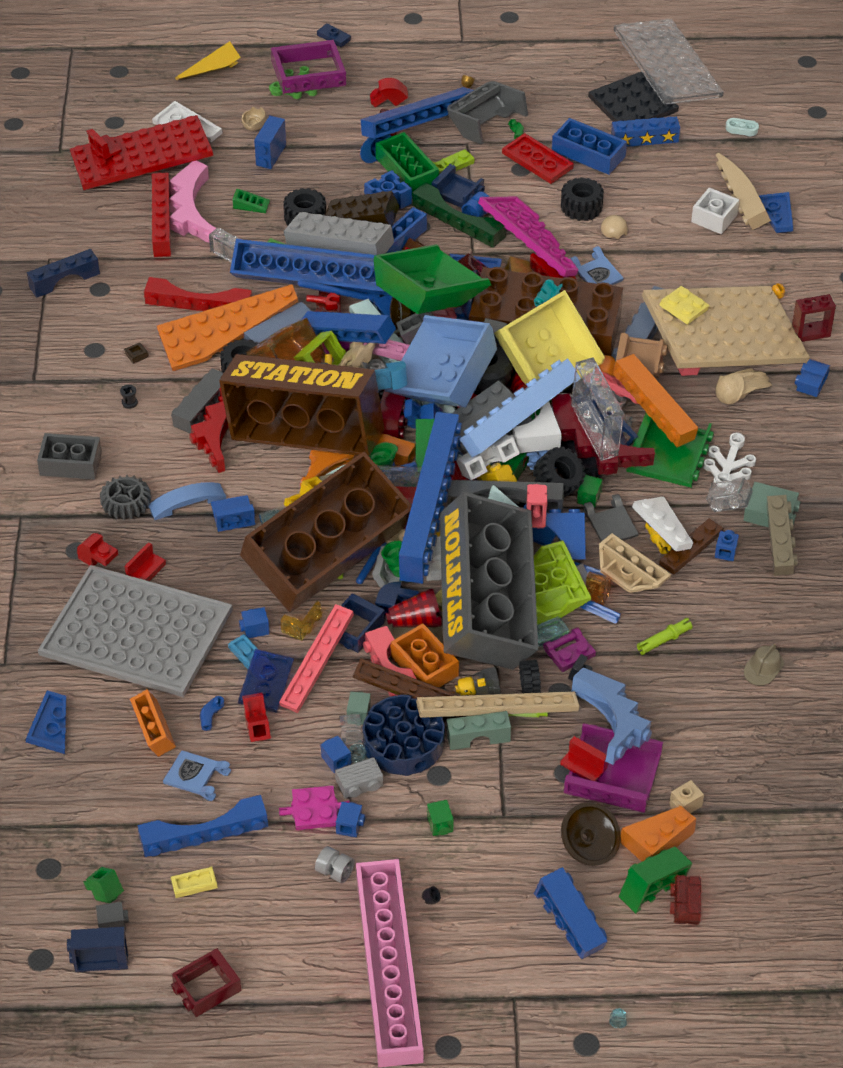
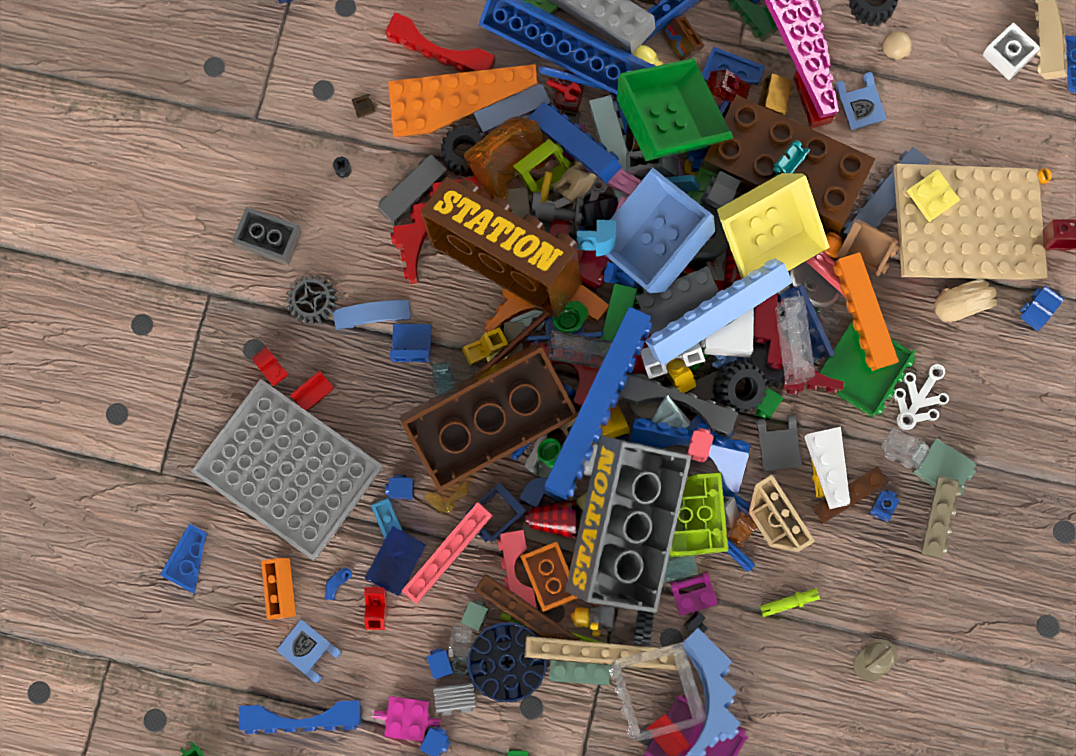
camera: 20 degrees right, 30 degrees up
(567, 685) = (688, 685): none -> clear window

